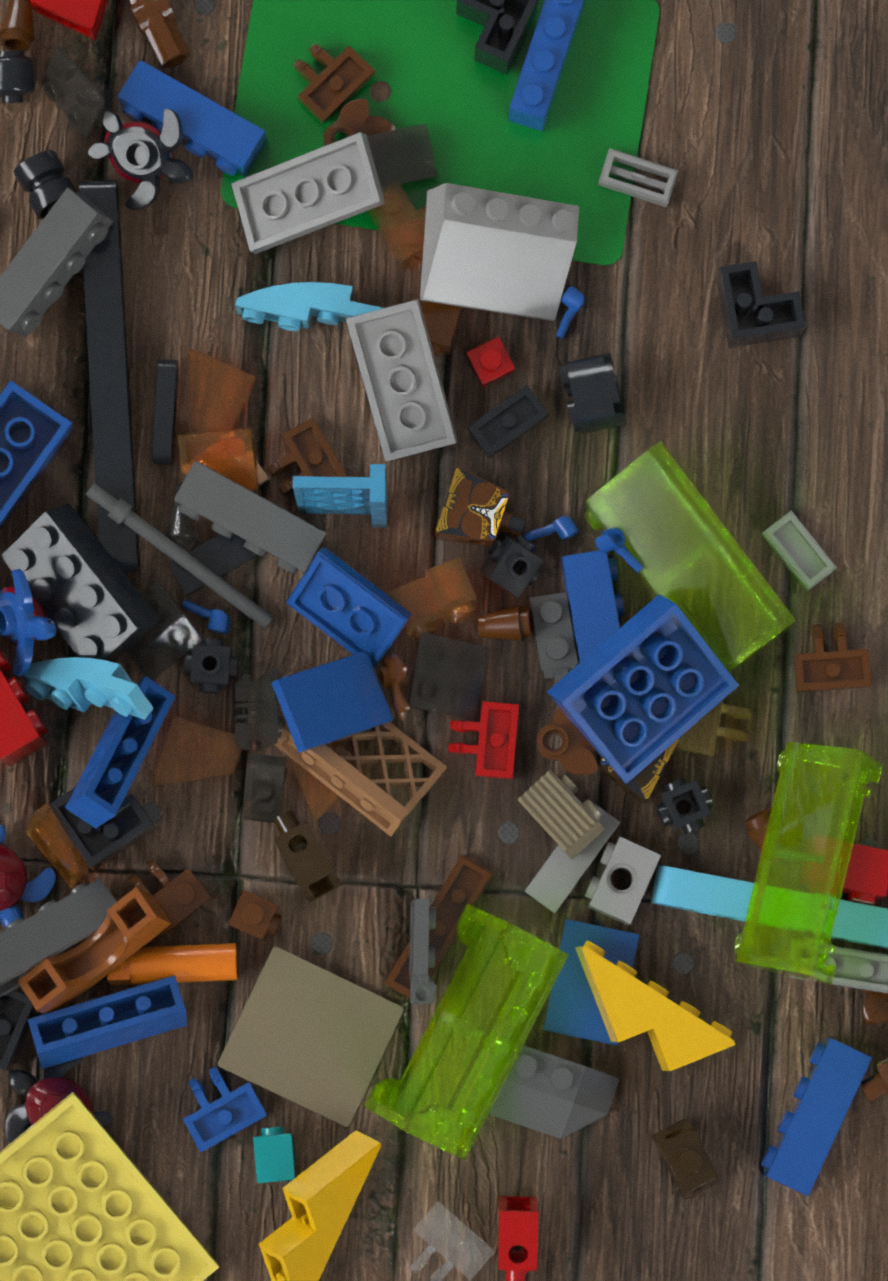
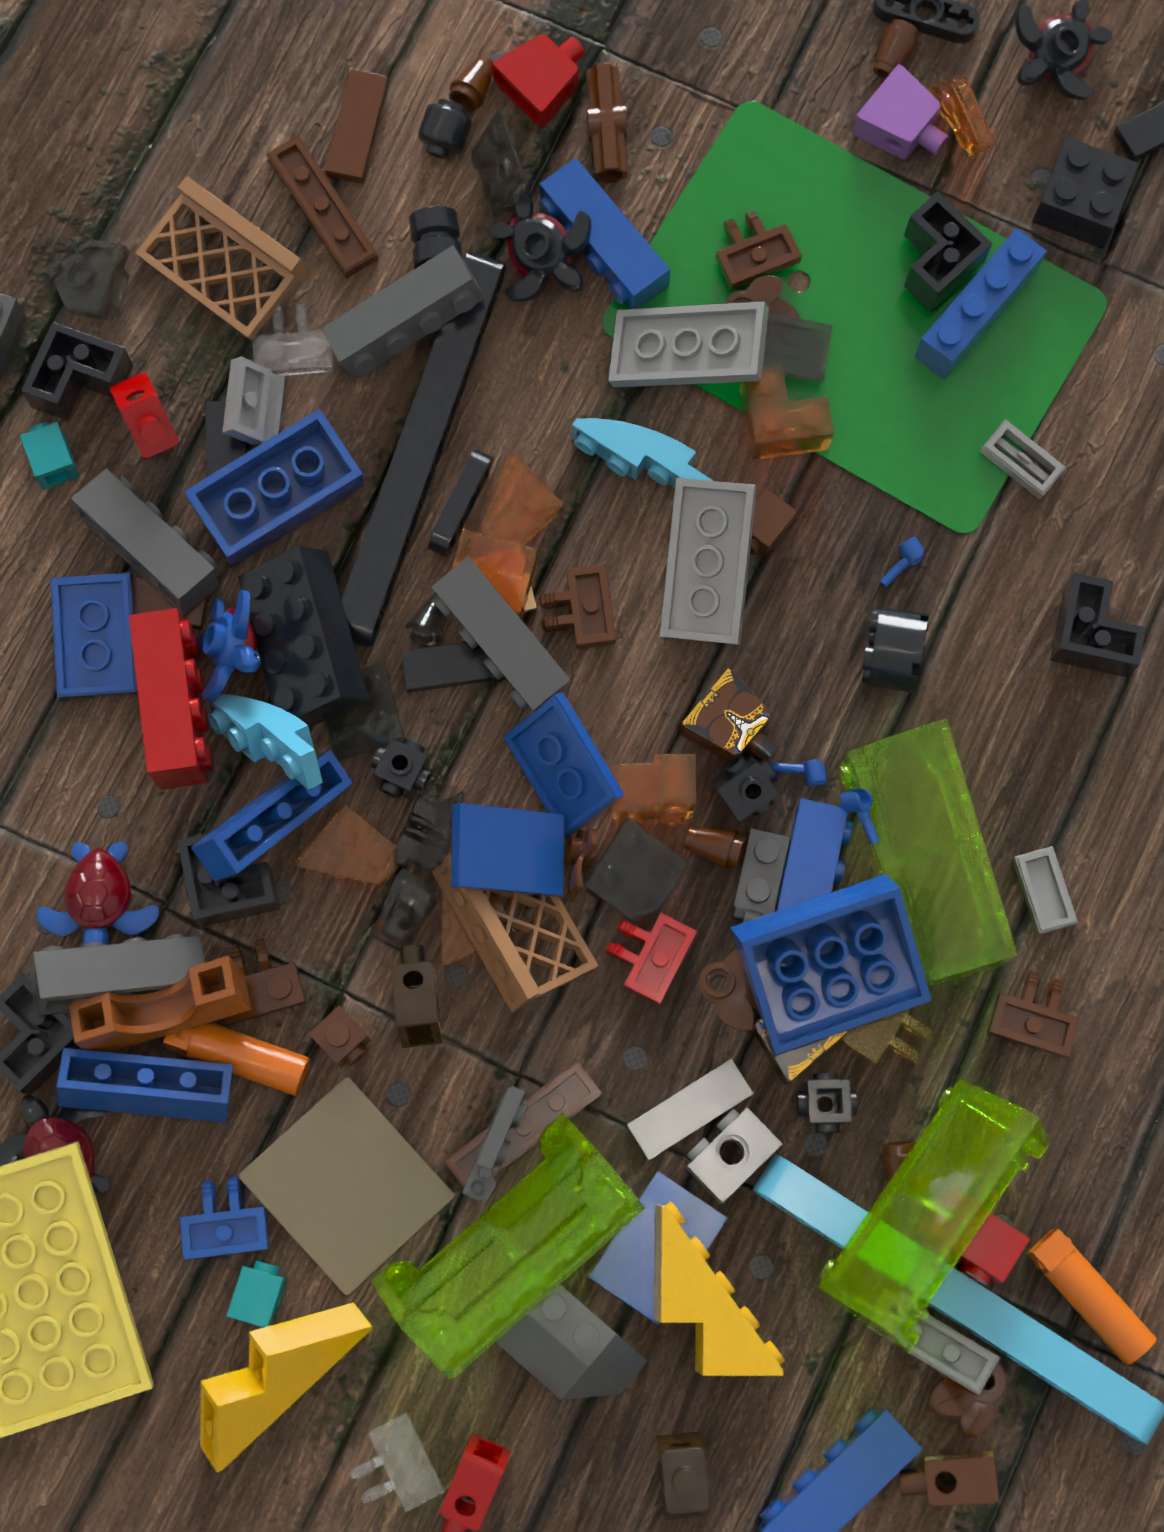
camera: 20 degrees right, 5 degrees down
(56, 846) = (170, 885): clear orange wing -> none
(121, 511) = (375, 580): dark grey bar -> none
(218, 622) = (428, 728): blue hand -> none
(345, 495) = (604, 646): dark azure fence -> none
(490, 362) = (804, 581): red plate -> none
(496, 251) = (854, 470): light grey slope -> none
(508, 421) = (798, 645): black plate -> none
(561, 813) = (697, 1060): dark tan brick -> none

